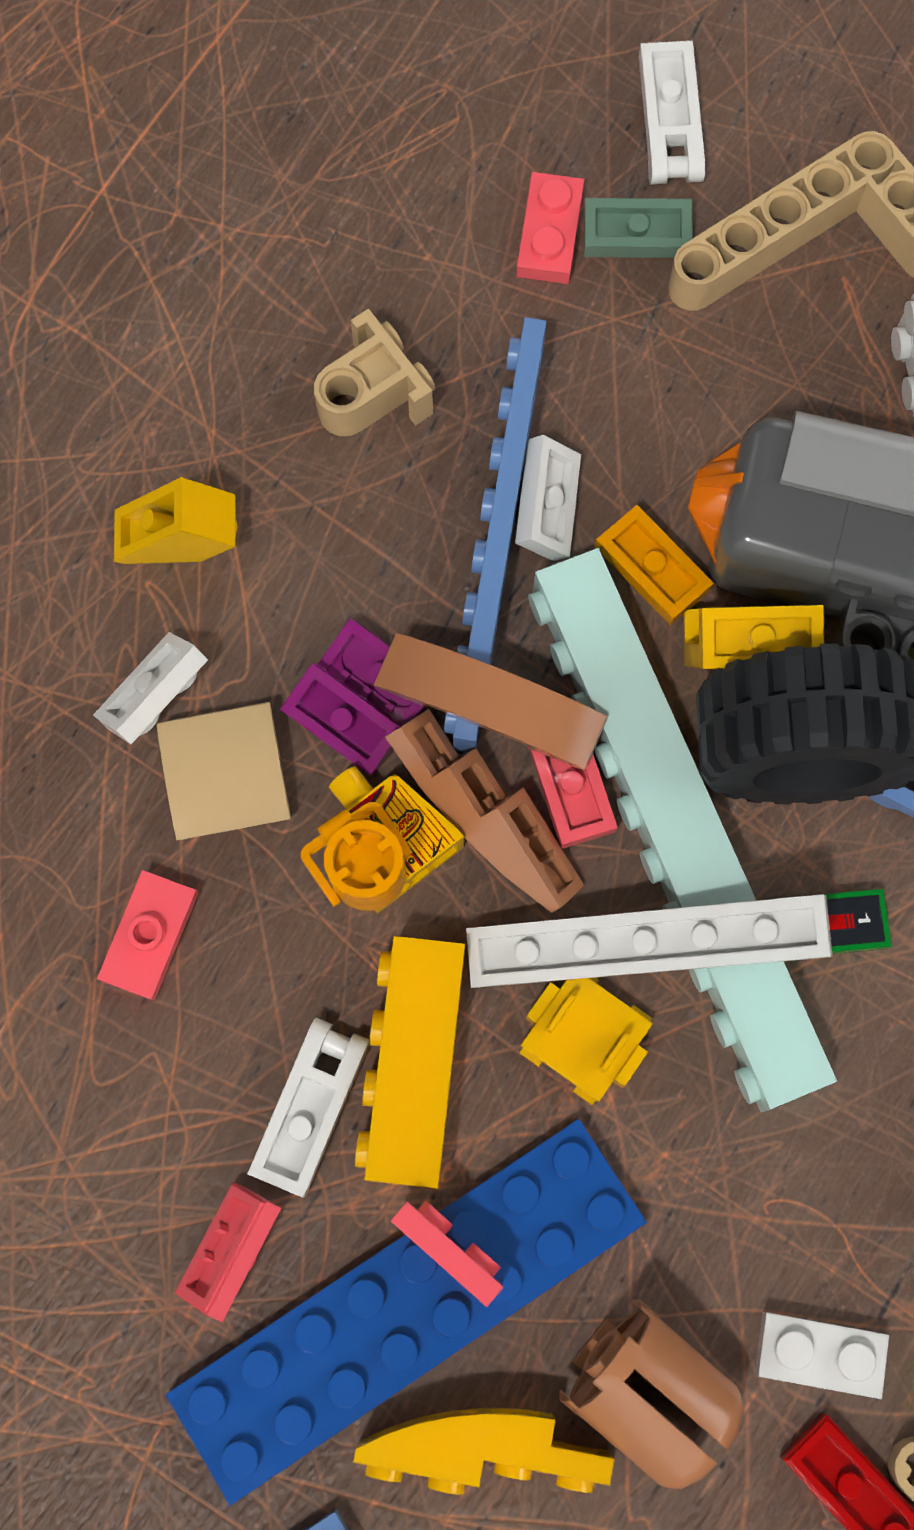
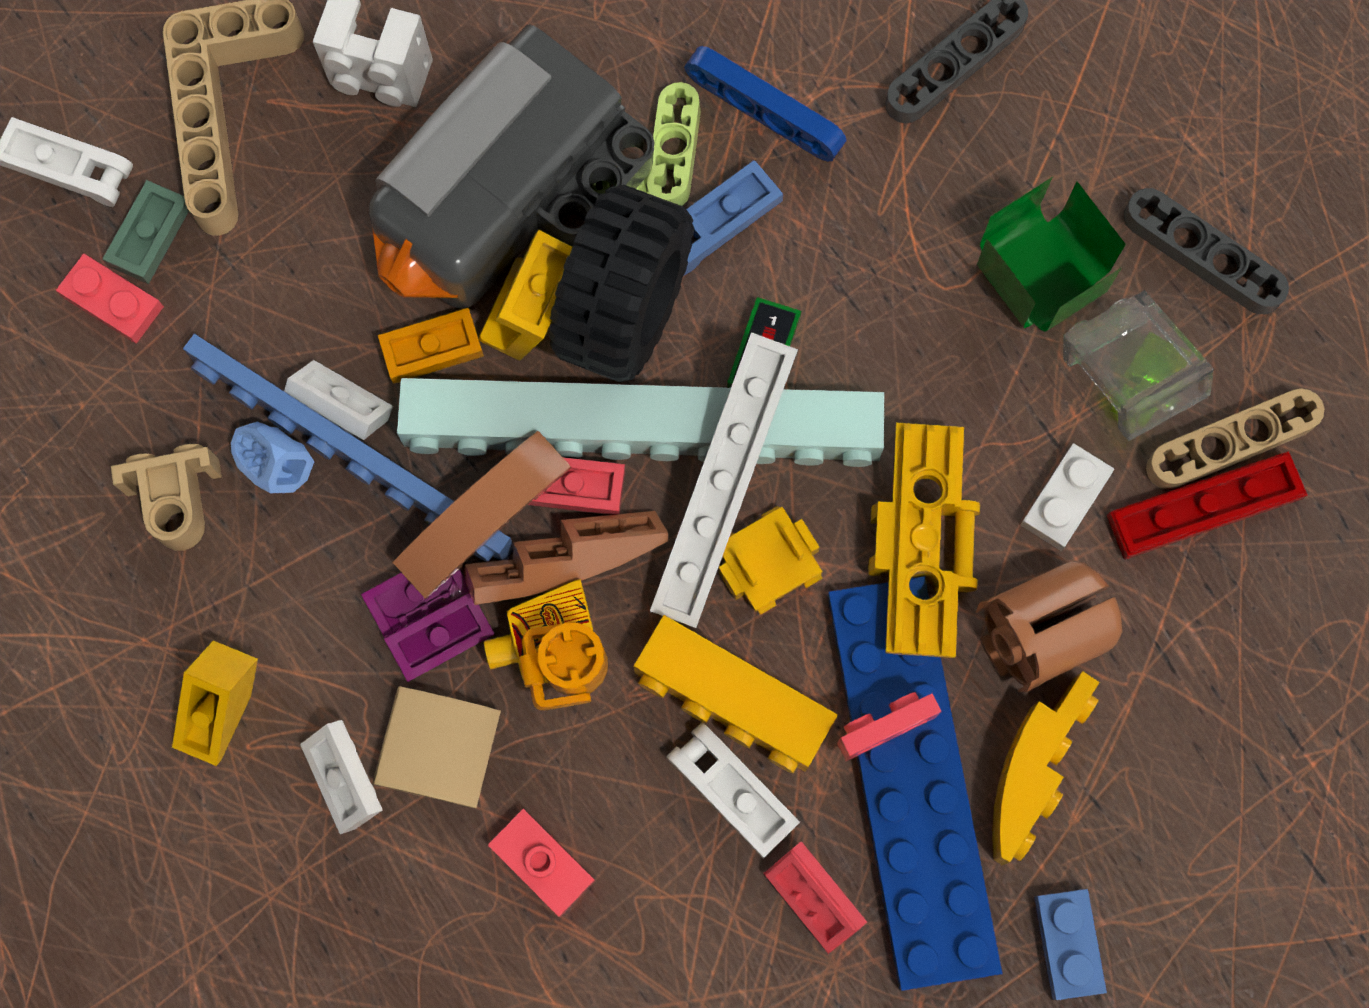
camera: 65 degrees left, 0 degrees up
(453, 461) = (270, 458): none -> light blue rock
(681, 1187) = (911, 536): none -> yellow piece

